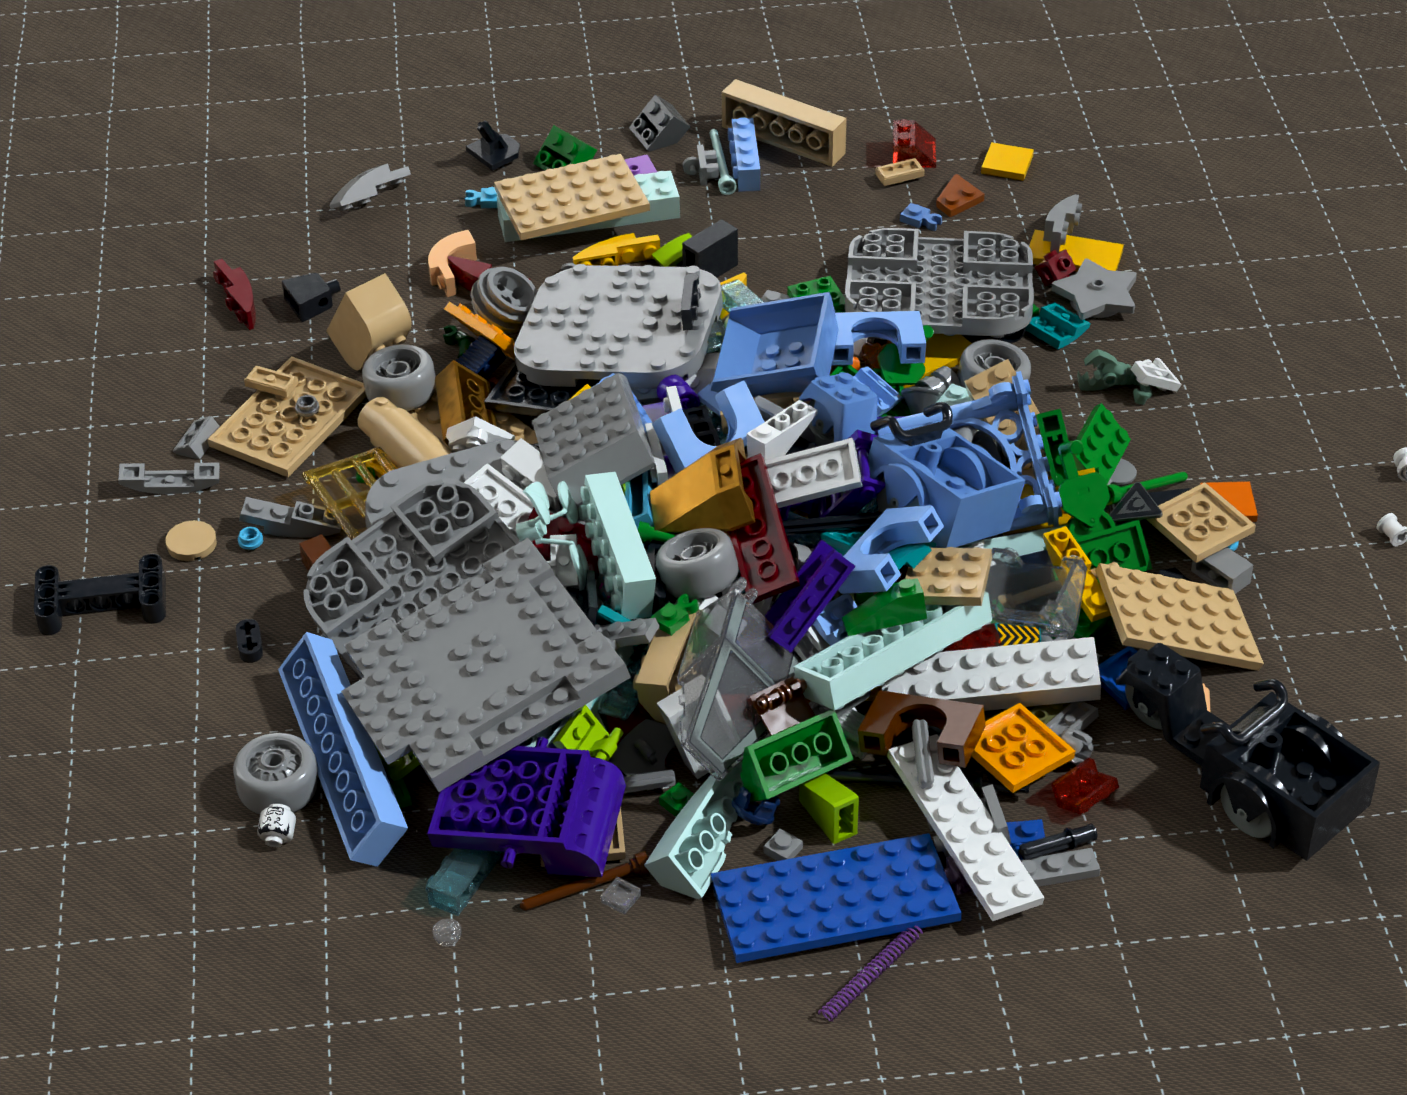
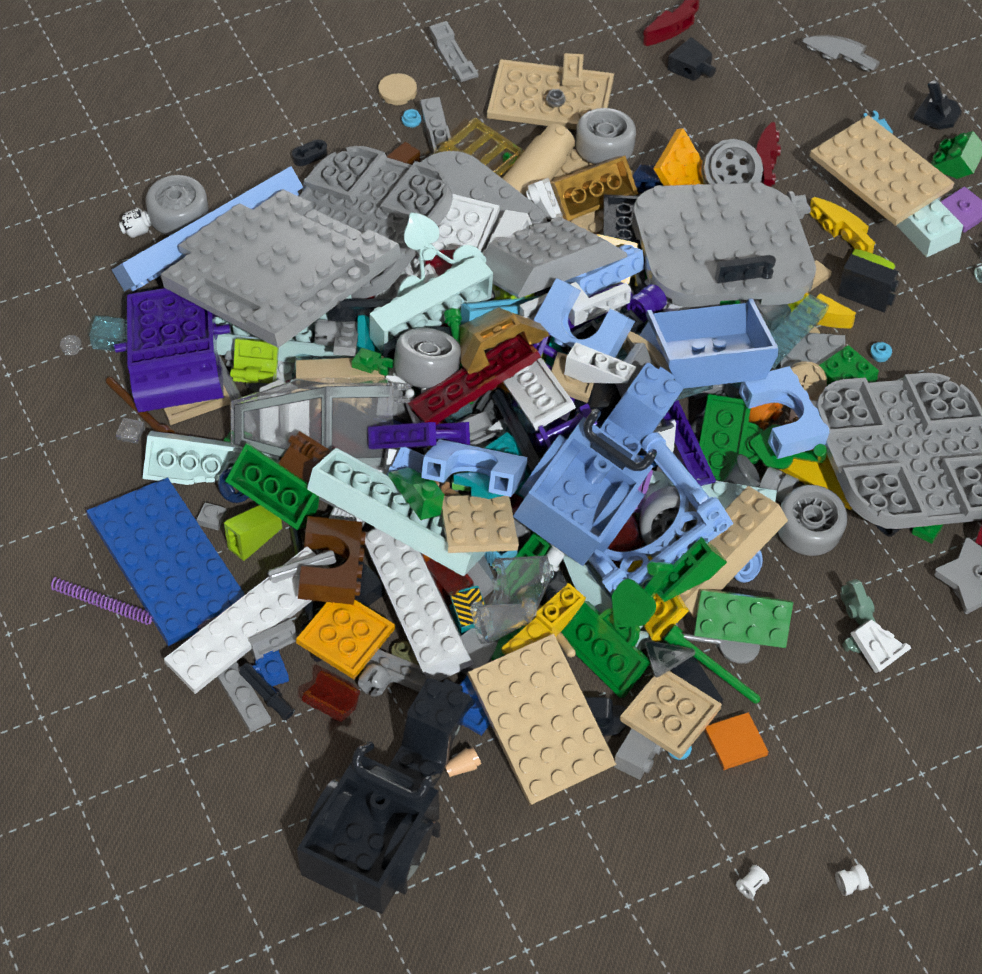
camera: 70 degrees right, 10 degrees up
(98, 594) = (331, 79): black beam -> none
(195, 441) = (511, 54): light grey slope -> none
(369, 320) = (646, 95): tan brick -> none
(458, 245) = (789, 123): light nougat arch -> none
(791, 277) = (881, 351): none -> medium azure plate
(886, 394) = (727, 432): light blue slope -> none
(1057, 326) = (918, 558): teal slope -> none

